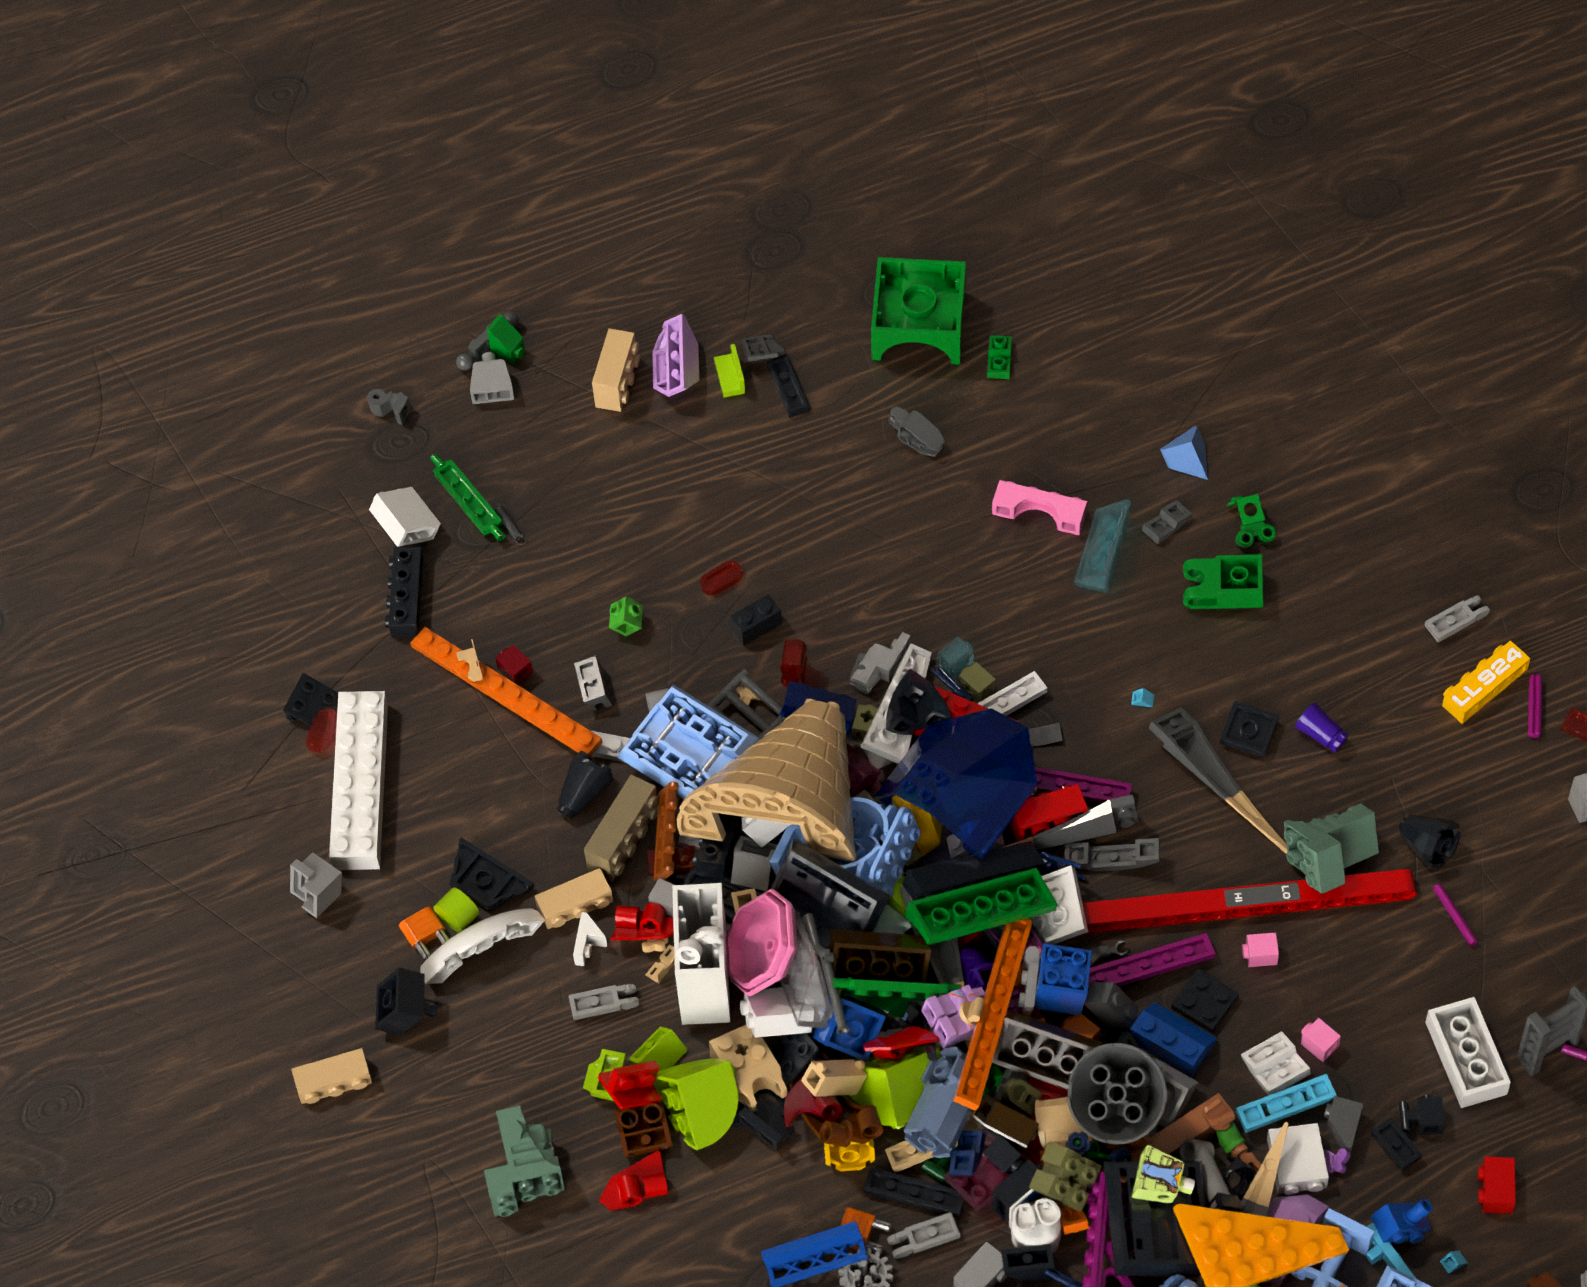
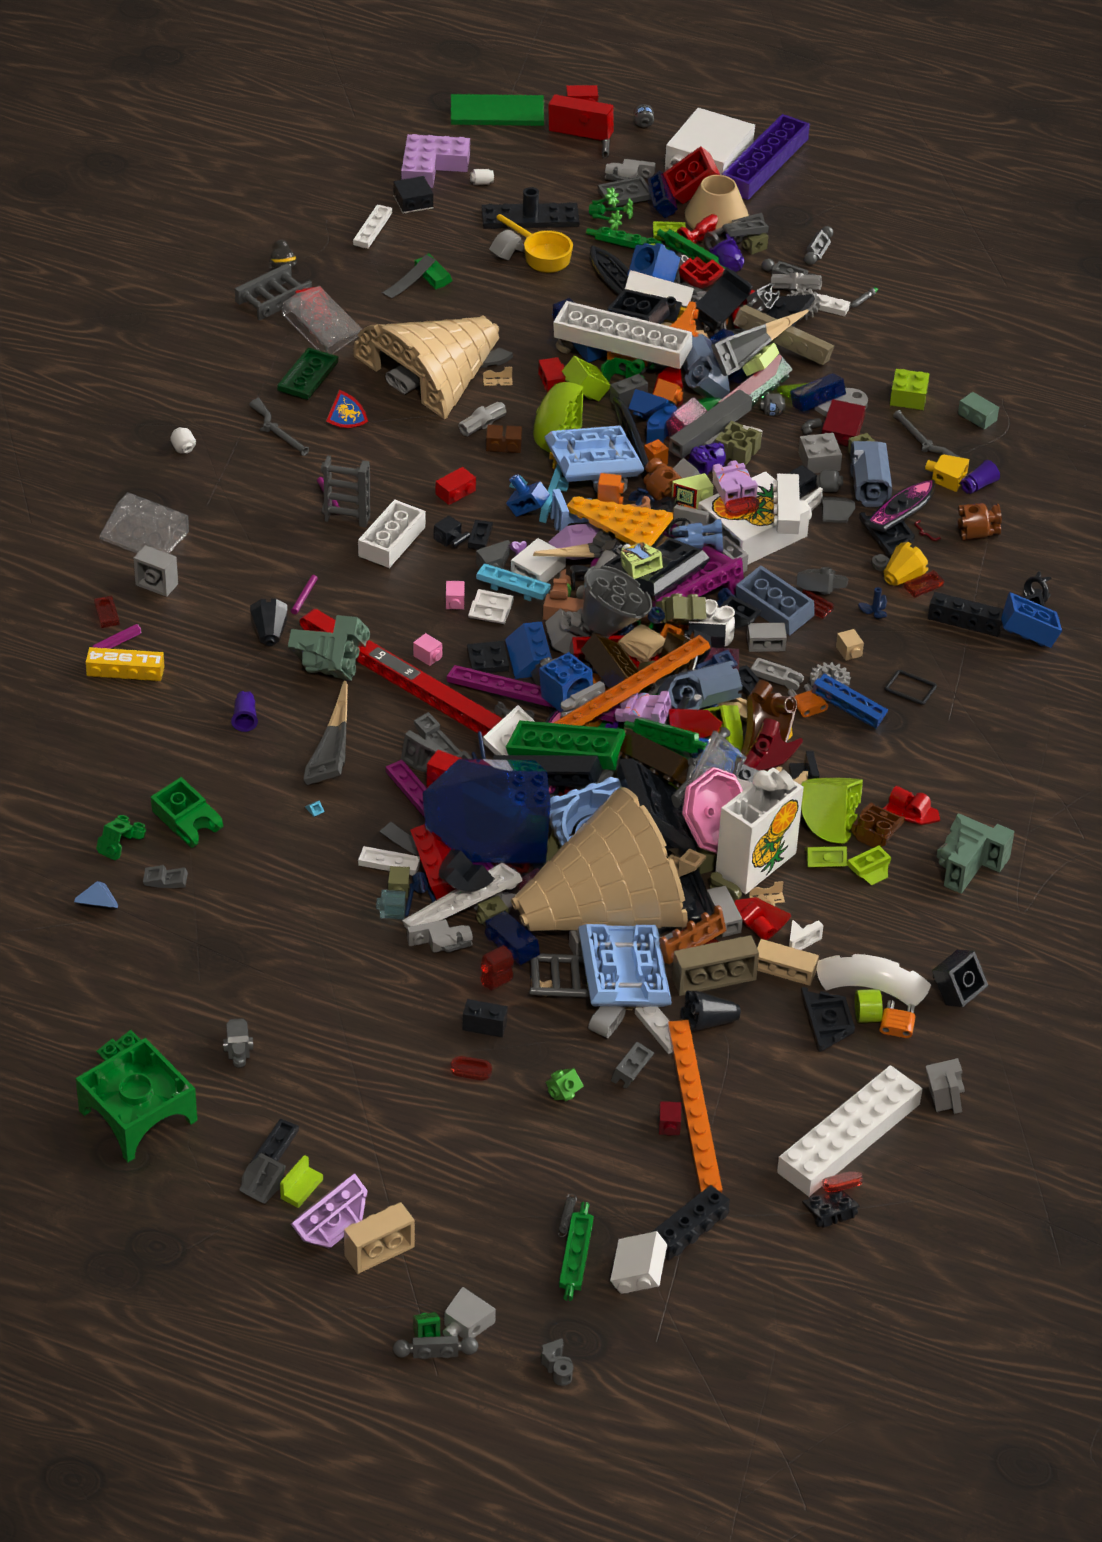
camera: 140 degrees left, 15 degrees down
(331, 1076) = (1040, 985): tan brick -> none
(470, 657) = (696, 1139): tan piece -> none
(602, 1001) = (828, 901): light grey hinge -> none
(632, 1084) = (865, 834): red bracket -> none
(834, 1077) = (752, 731): tan brick -> none
(971, 1011) = (641, 687): tan plate -> none
(1014, 499) = (236, 956): bright pink arch -> none
(1103, 546) = (221, 888): clear light blue slope -> none
(1249, 729) = (282, 743): black plate -> none
(1456, 618) = (89, 704): light grey hinge -> none

